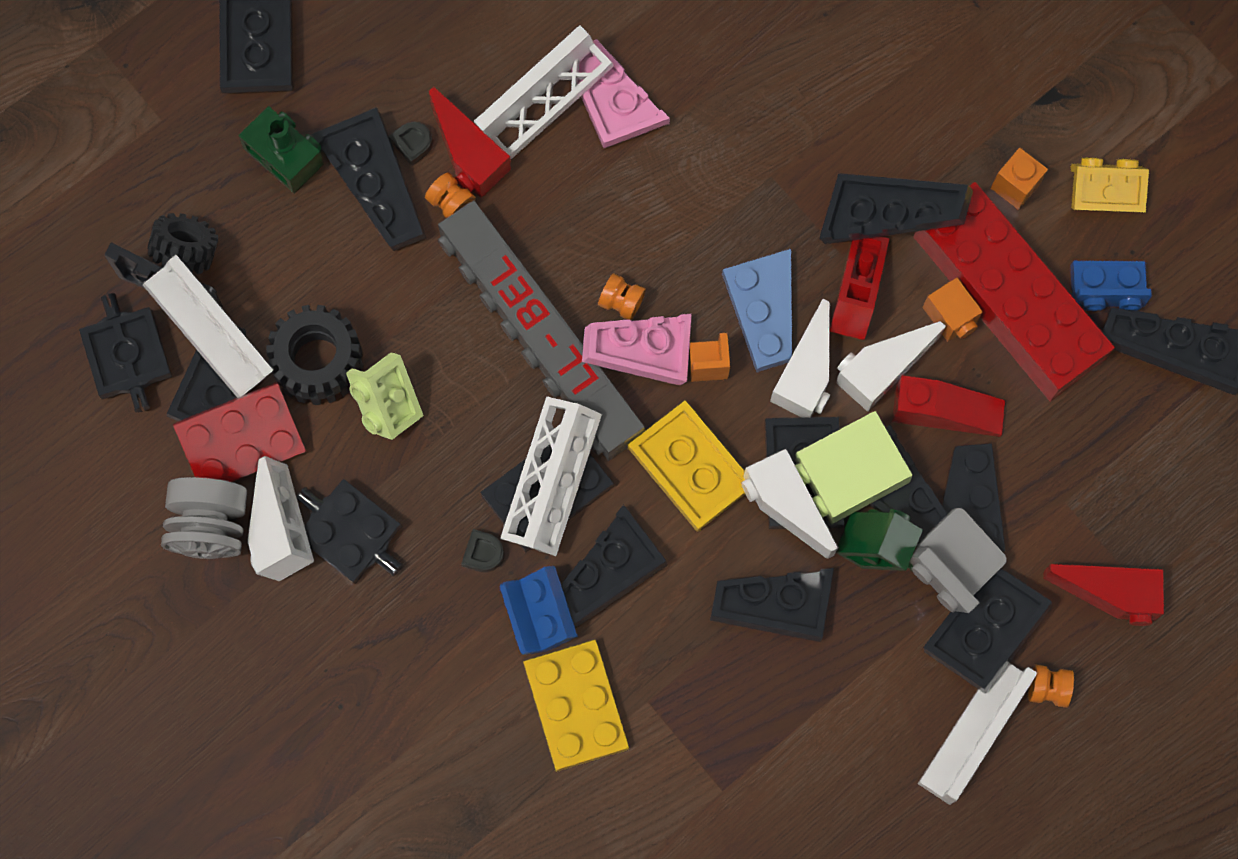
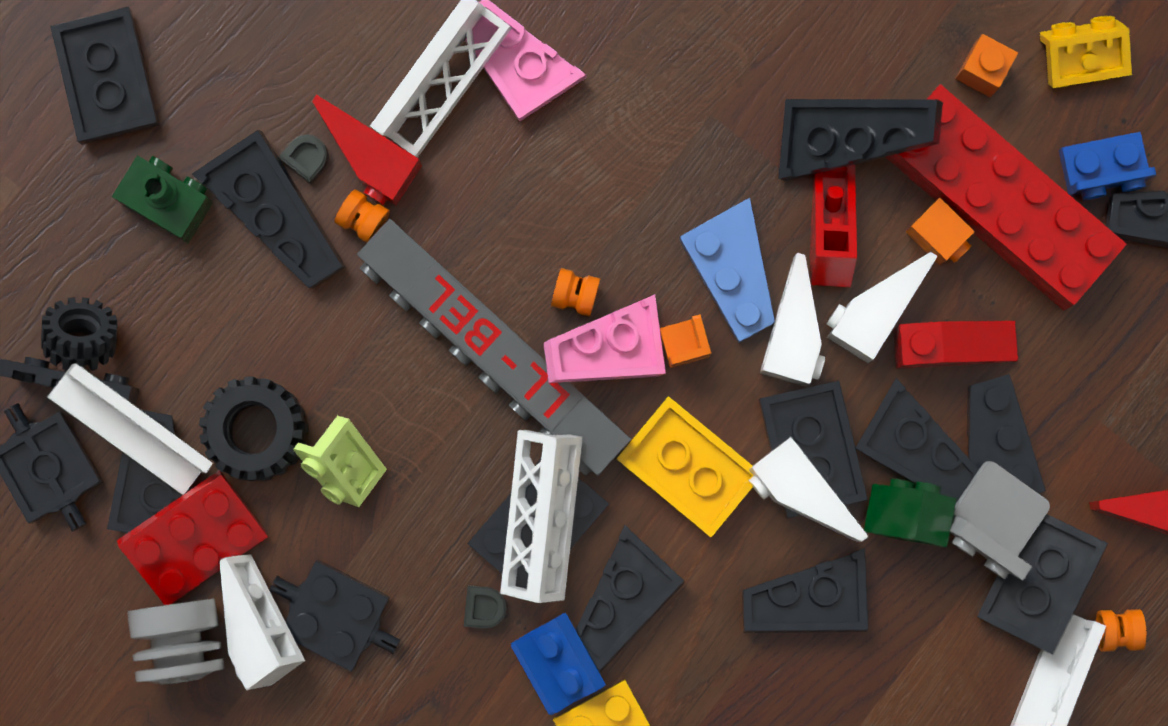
camera: 10 degrees left, 10 degrees up
(852, 468) = (865, 440): yellowish green brick -> none

